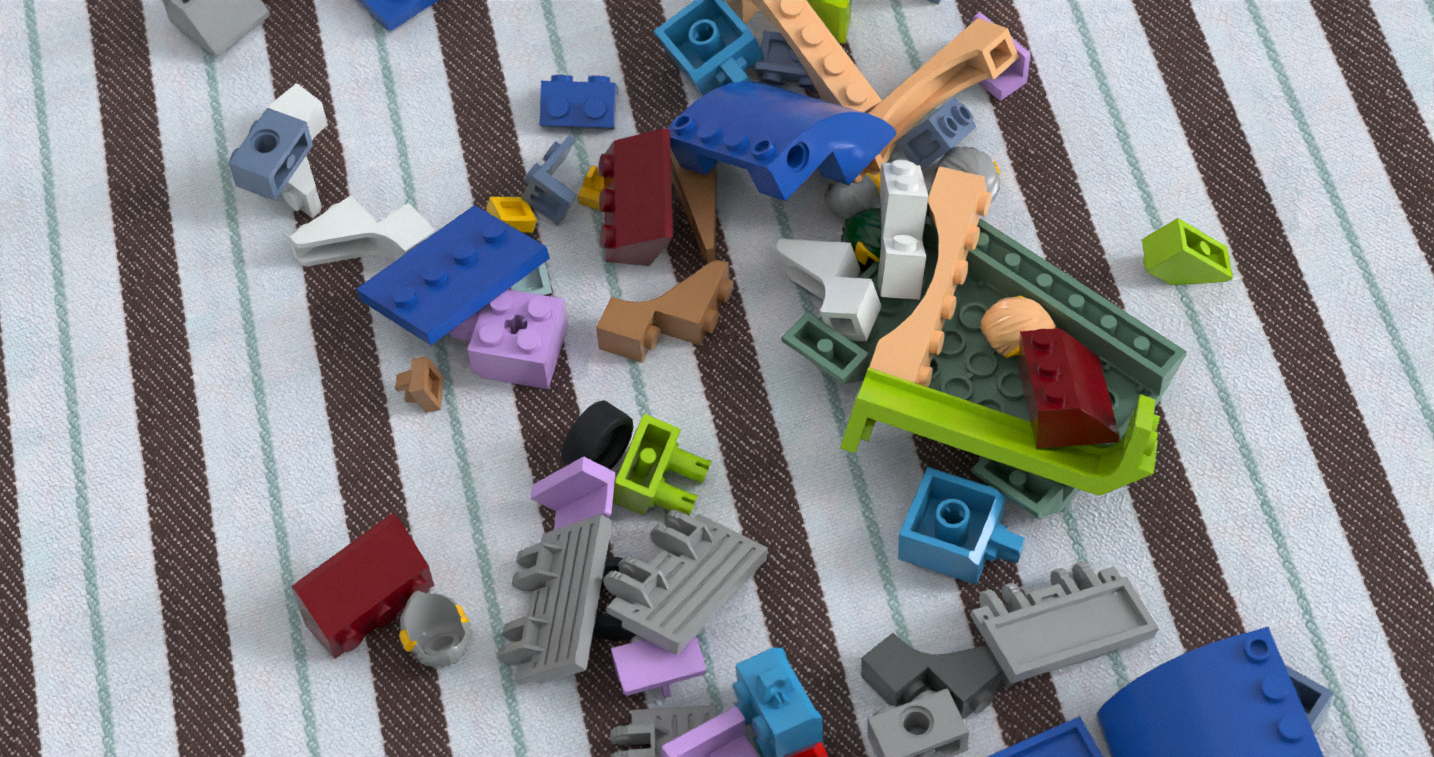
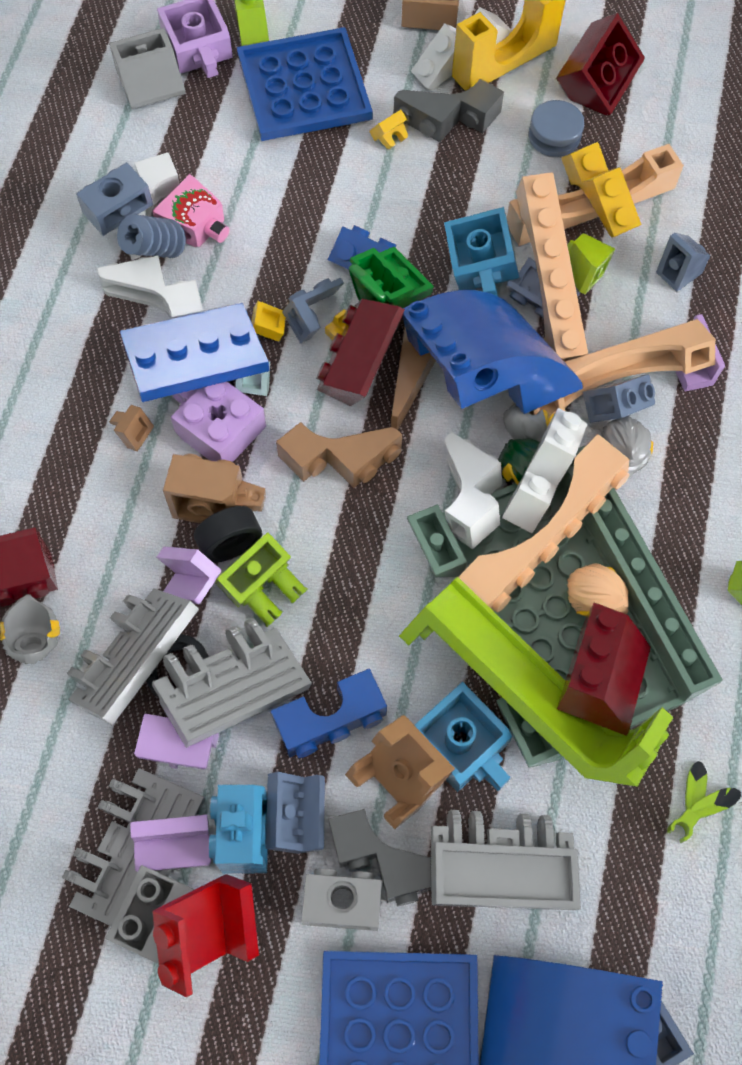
camera: 20 degrees right, 10 degrees up
(334, 177) = (151, 236): none -> sand blue piece
(358, 139) = (195, 211): none -> bright pink torso
(548, 402) = (204, 487): none -> medium nougat hinge
(624, 111) = (387, 278): none -> green piece
(785, 594) = (304, 730): none -> blue arch
(826, 672) = (295, 813): none -> sand blue bracket
(911, 577) = (404, 766): none -> medium nougat panel
(1224, 487) = (699, 805): none -> lime piece

